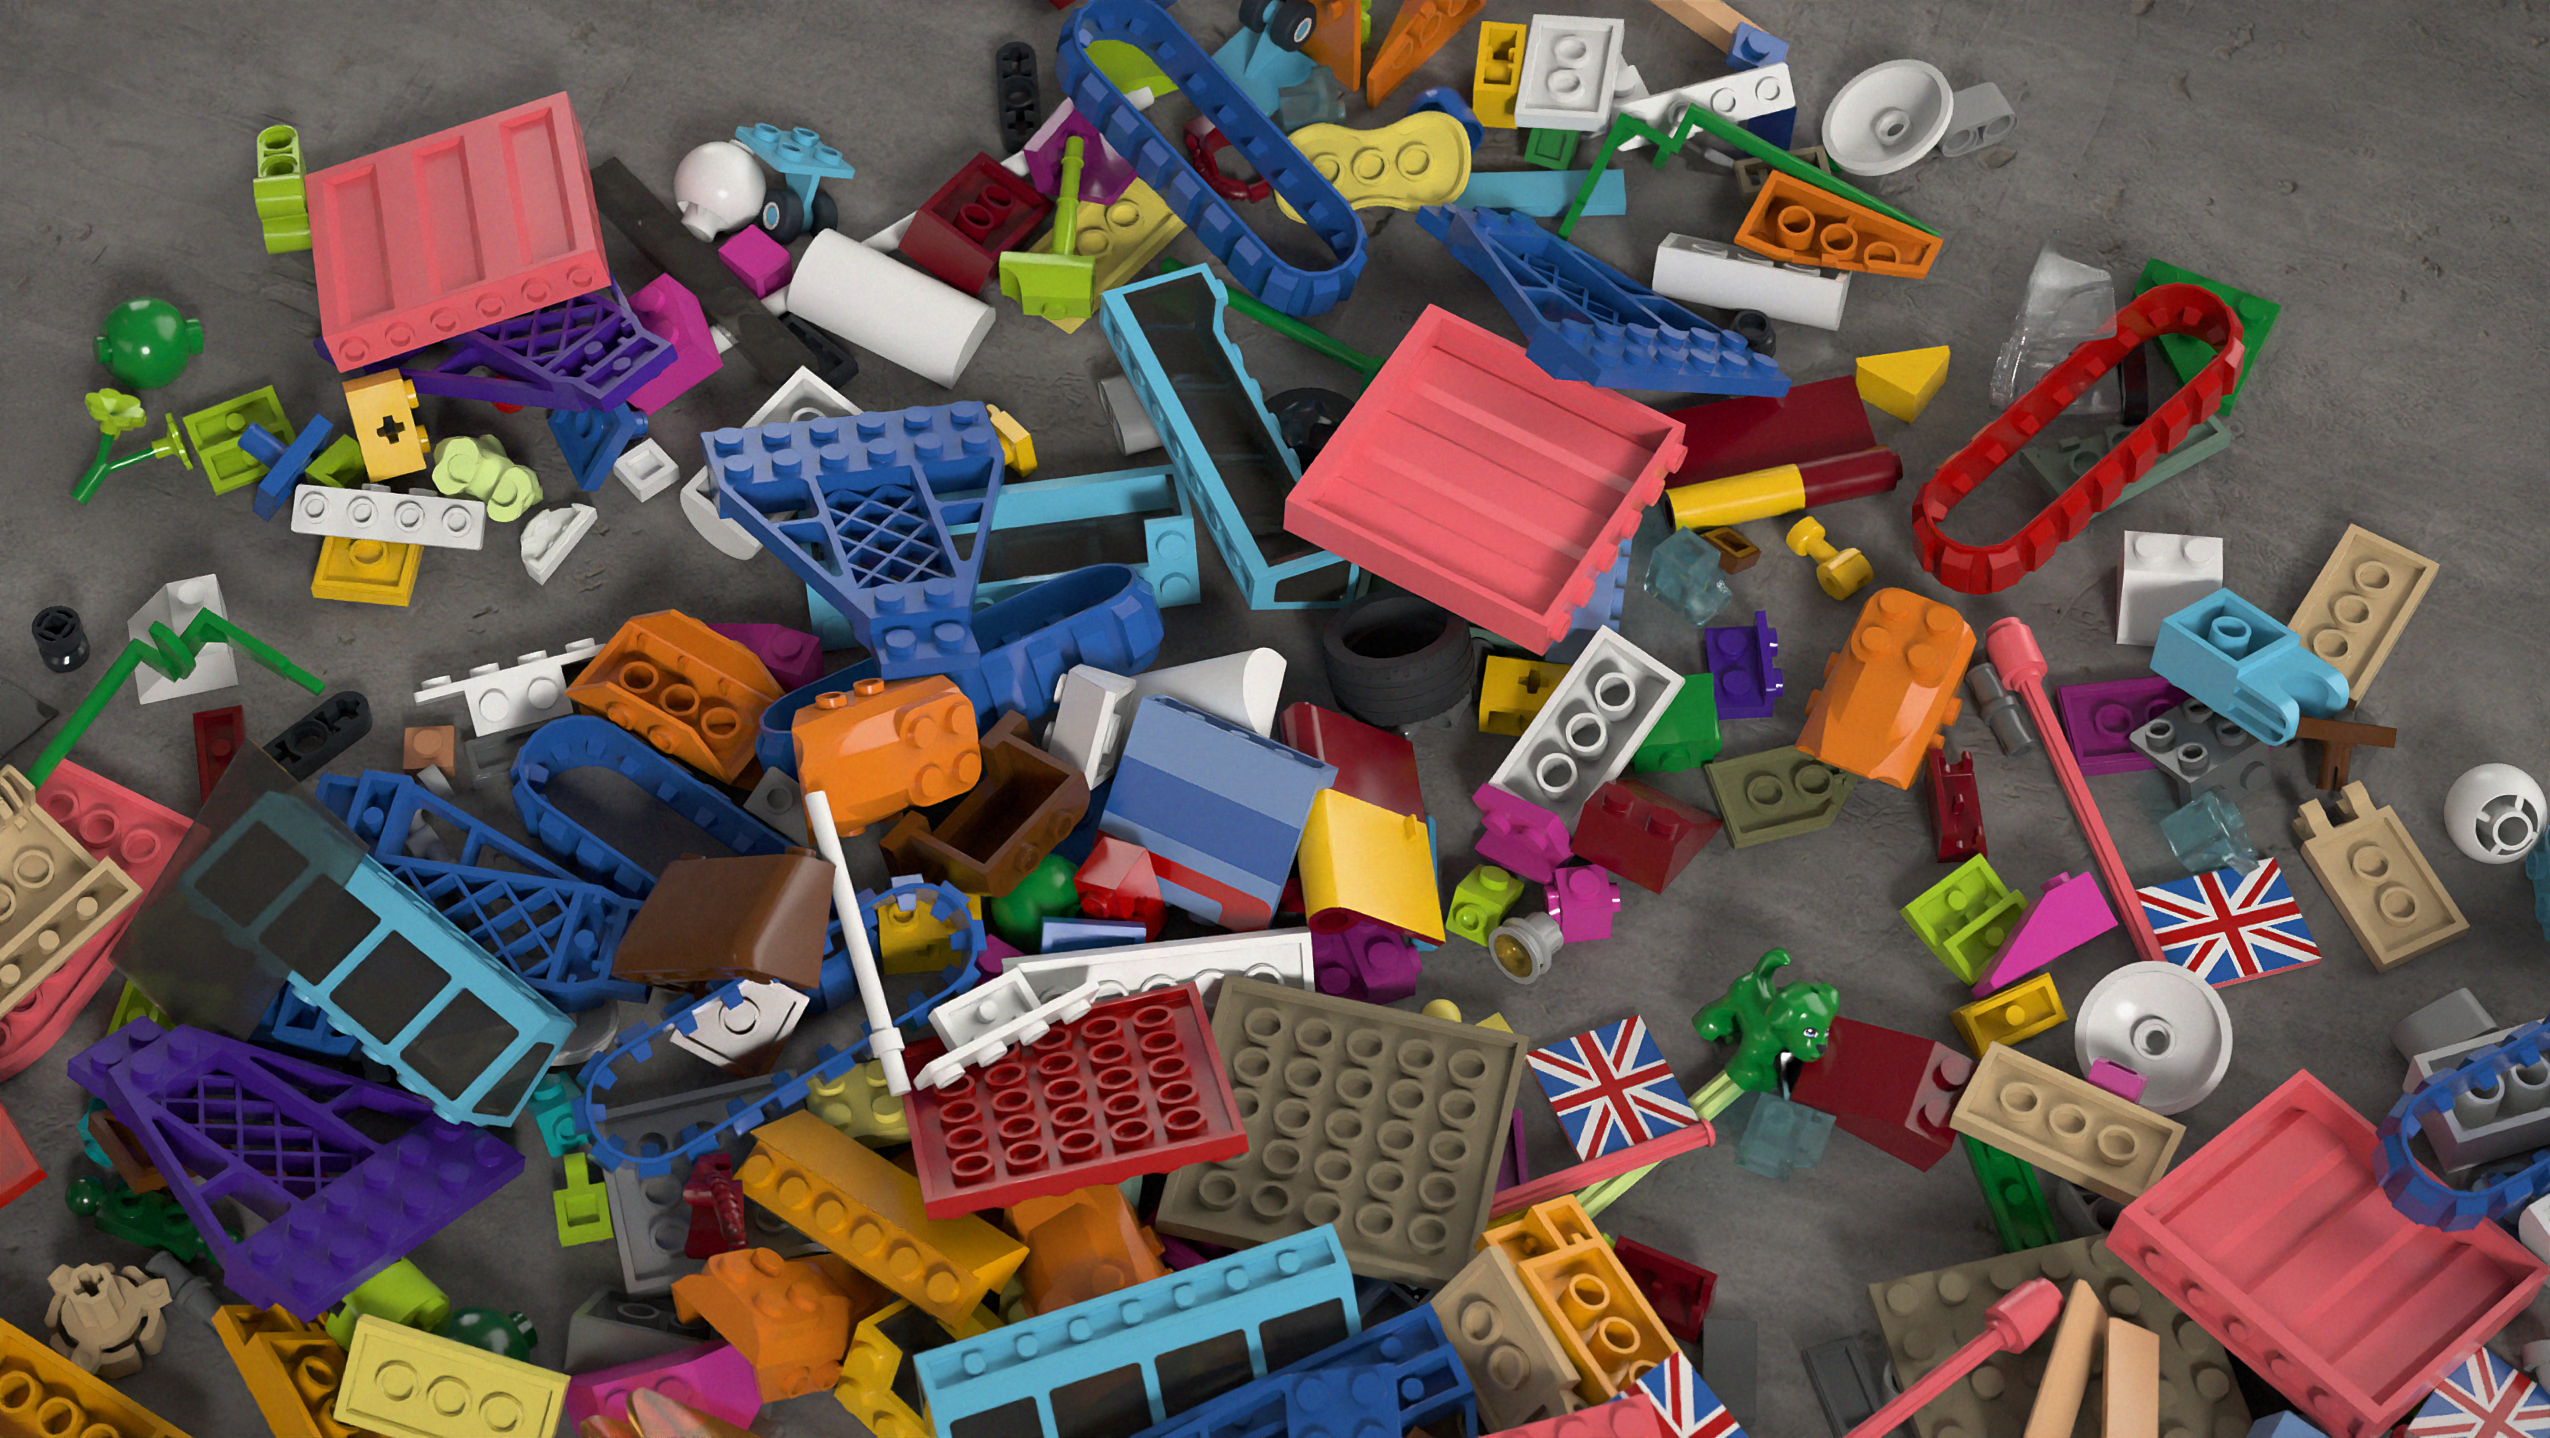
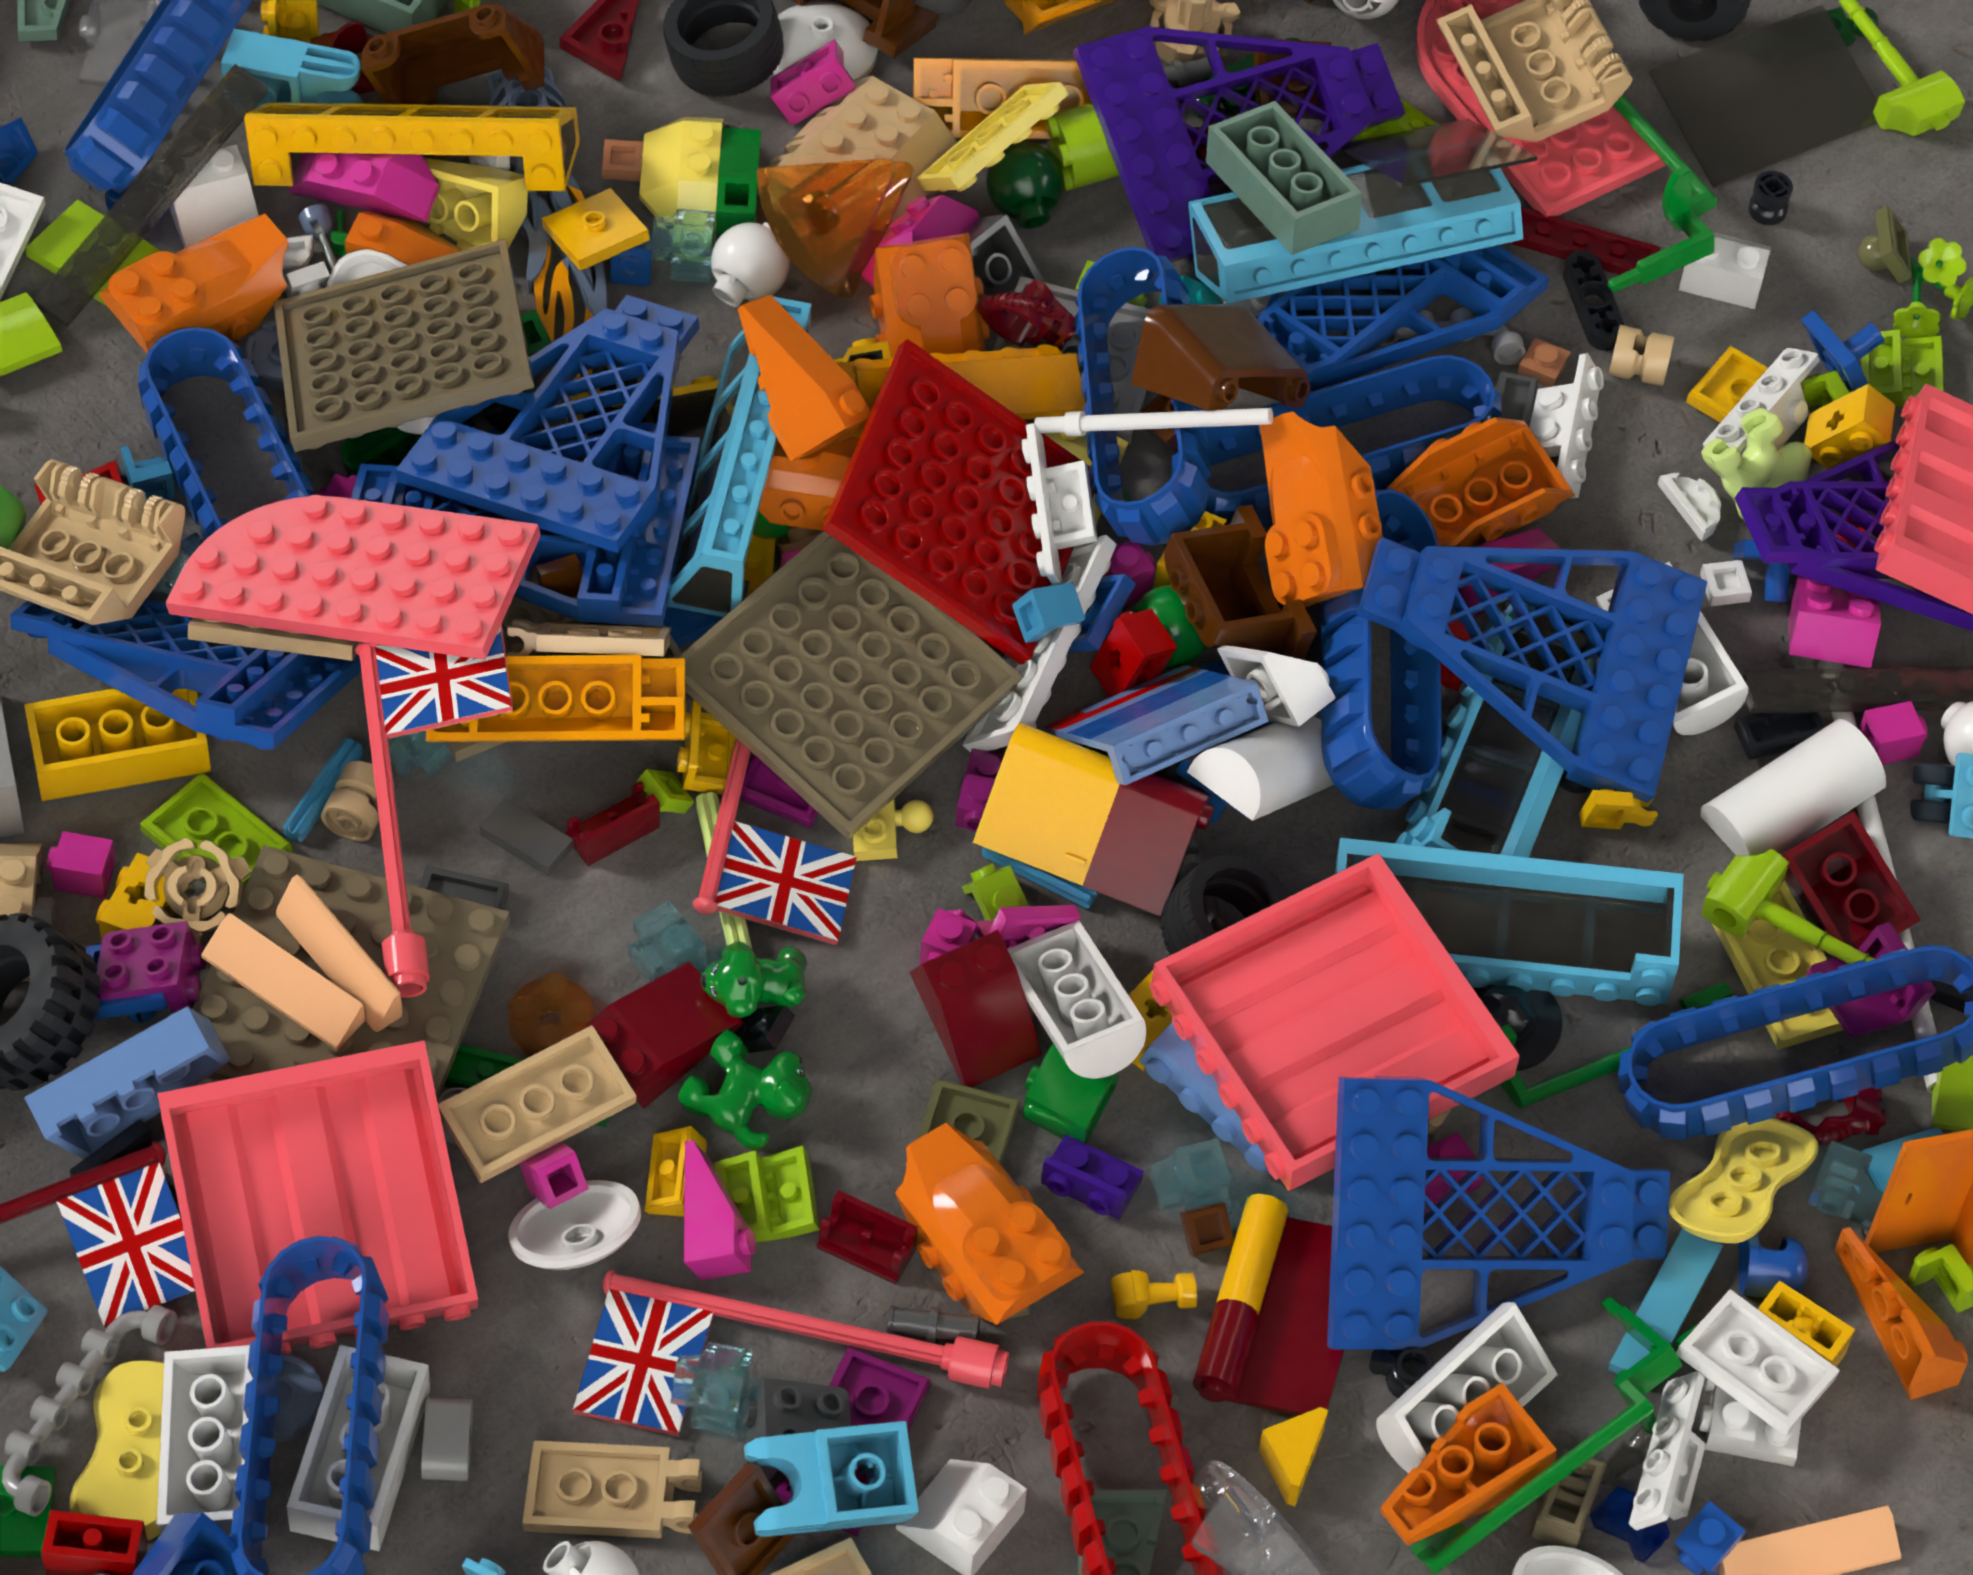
camera: 115 degrees right, 0 degrees up
(85, 512) = (1888, 247): none -> olive tile
(378, 655) = (1641, 355): none -> tan wheel
(391, 1005) = (1283, 177): none -> sand green brick
(1053, 1276) = (806, 389): none -> orange wedge
(1139, 973) = (1047, 609): none -> dark azure panel
(1525, 946) = (936, 889): light grey piece -> none
(1865, 952) = (778, 1088): none -> green animal
(1930, 1193) = (542, 996): none -> clear orange plate

